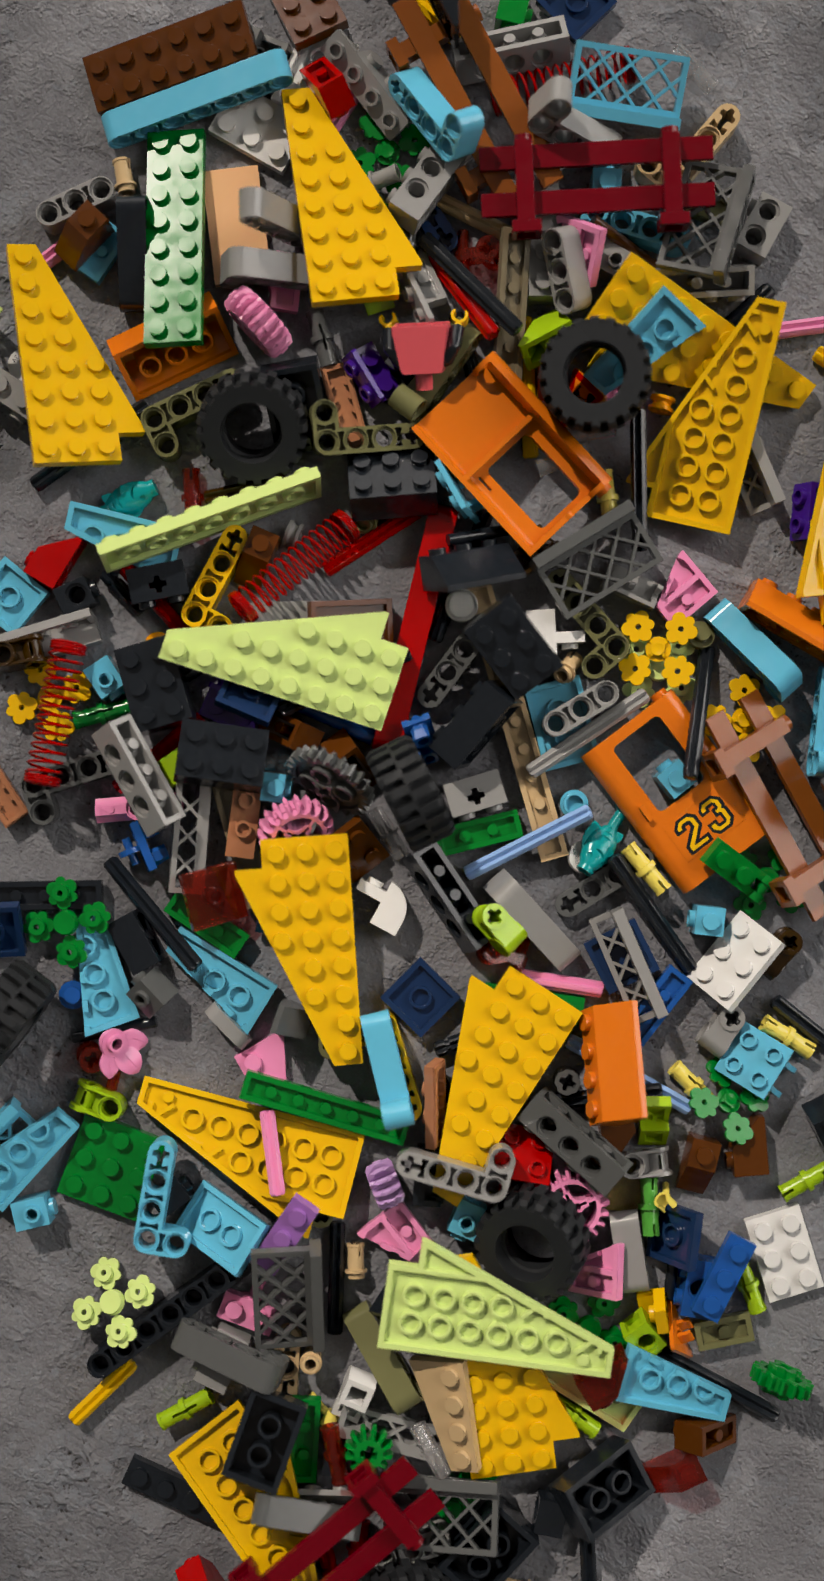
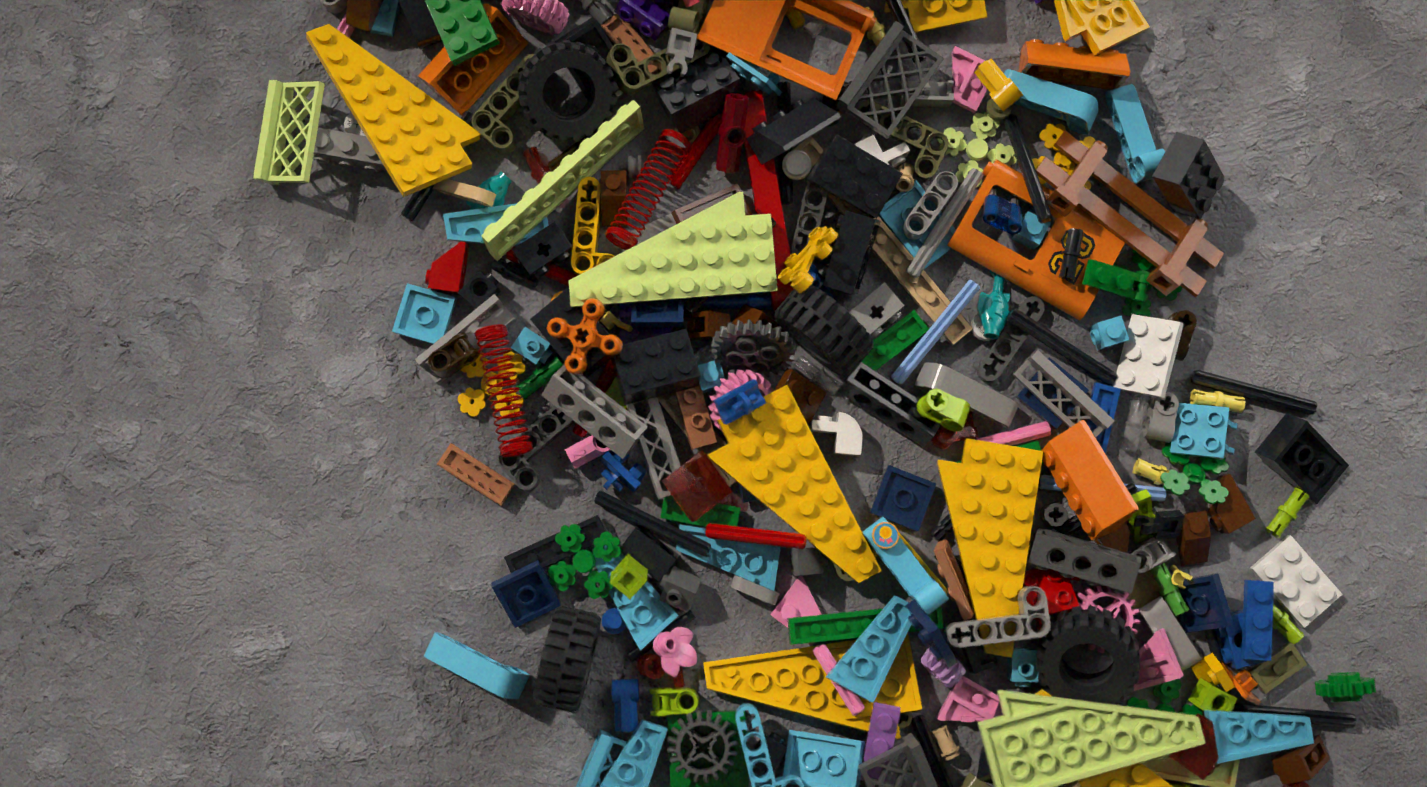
camera: 20 degrees left, 5 degrees down
(51, 1076) = (625, 696): none -> blue piece
(103, 959) = (629, 576): none -> lime brick
(105, 488) = (465, 192): none -> tan beam
(109, 1171) = (685, 762): none -> dark grey gear
(165, 703) = (575, 333): none -> orange gear
(199, 685) = (610, 321): none -> light yellow hand
(250, 973) = (756, 536): none -> red axle
(288, 832) = (739, 402): none -> blue hips
(315, 1144) = (872, 654): none -> medium azure wing
(380, 1031) = (885, 535): none -> tile
(381, 1151) = (930, 634): none -> dark blue plate
(391, 432) = (681, 48): none -> light grey plate
(413, 531) = (733, 118): none -> dark red piece
(418, 712) = (799, 264): none -> yellow plant
(475, 535) = (785, 103): black bar -> none
(572, 800) = (955, 284): medium azure plate -> none
(645, 868) = (1041, 312): light yellow pin -> none
(650, 750) = (1002, 213): none -> clear blue piece
(658, 648) = (971, 131): yellow plant -> none
(672, 1141) = (1164, 525): none -> black plate
(690, 1026) = (1135, 426): none -> clear axle
(702, 823) = (1071, 254): none -> black axle
(709, 619) = (1001, 88): none -> yellow piece

